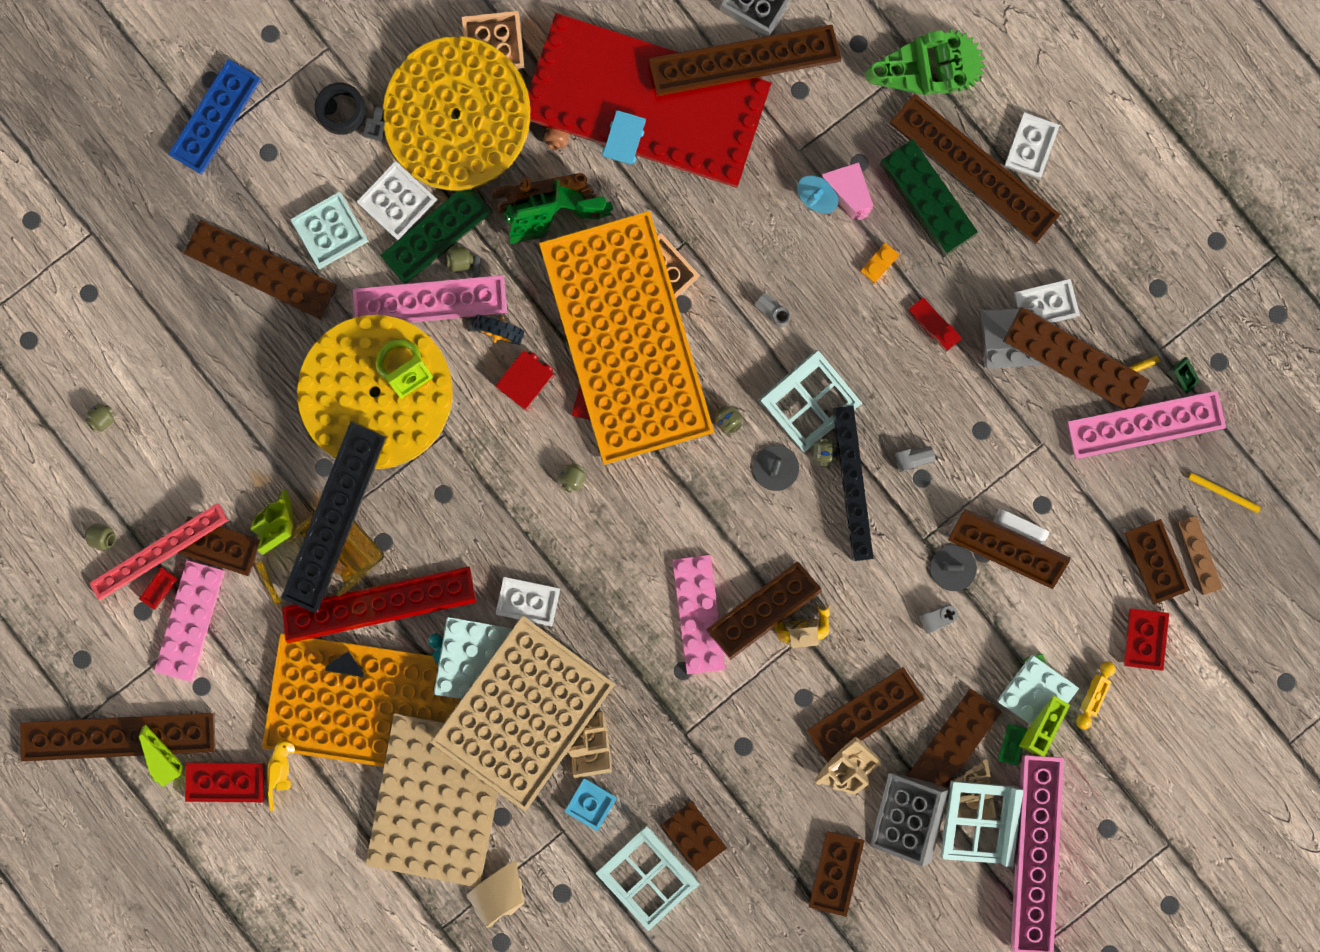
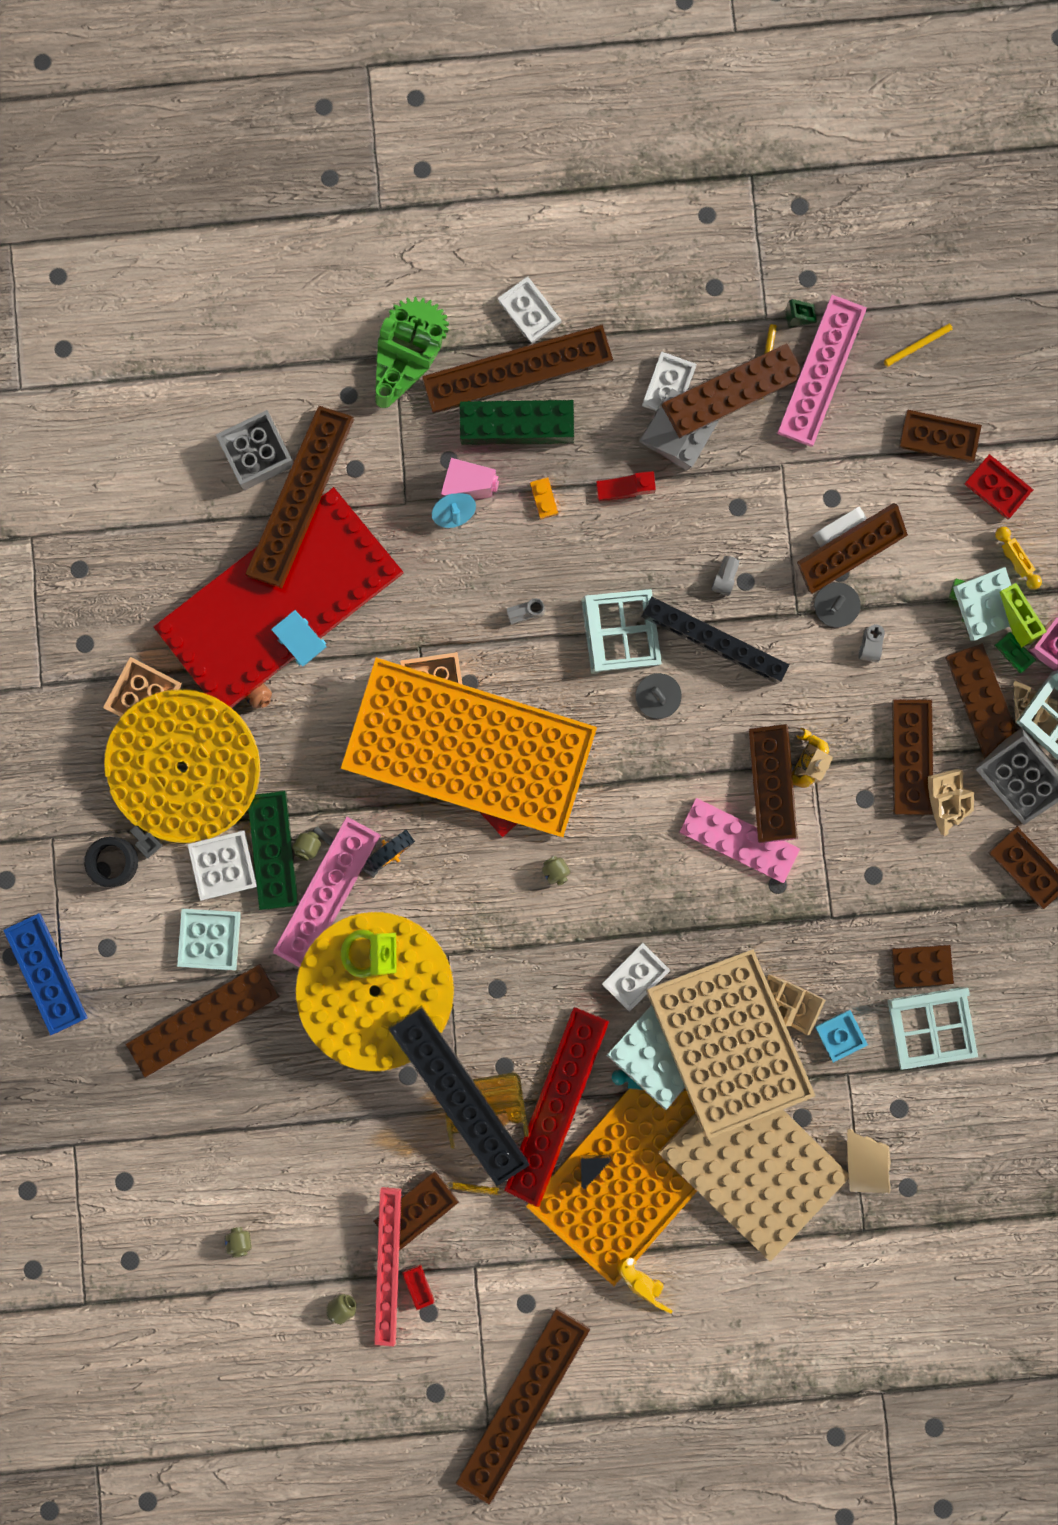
camera: 55 degrees left, 0 degrees up
(160, 761) = (569, 1382): lime slope -> none
(189, 621) = (463, 1278): bright pink plate -> none
(224, 782) = (621, 1337): red plate -> none
(274, 523) = (428, 1150): lime slope -> none
(525, 379) = (447, 856): red panel -> none
(534, 204) = (304, 750): green piece -> none
(728, 419) = (593, 708): olive head -> none
(825, 452) = (673, 646): olive head -> none
(1199, 555) = (956, 398): medium nougat plate -> none

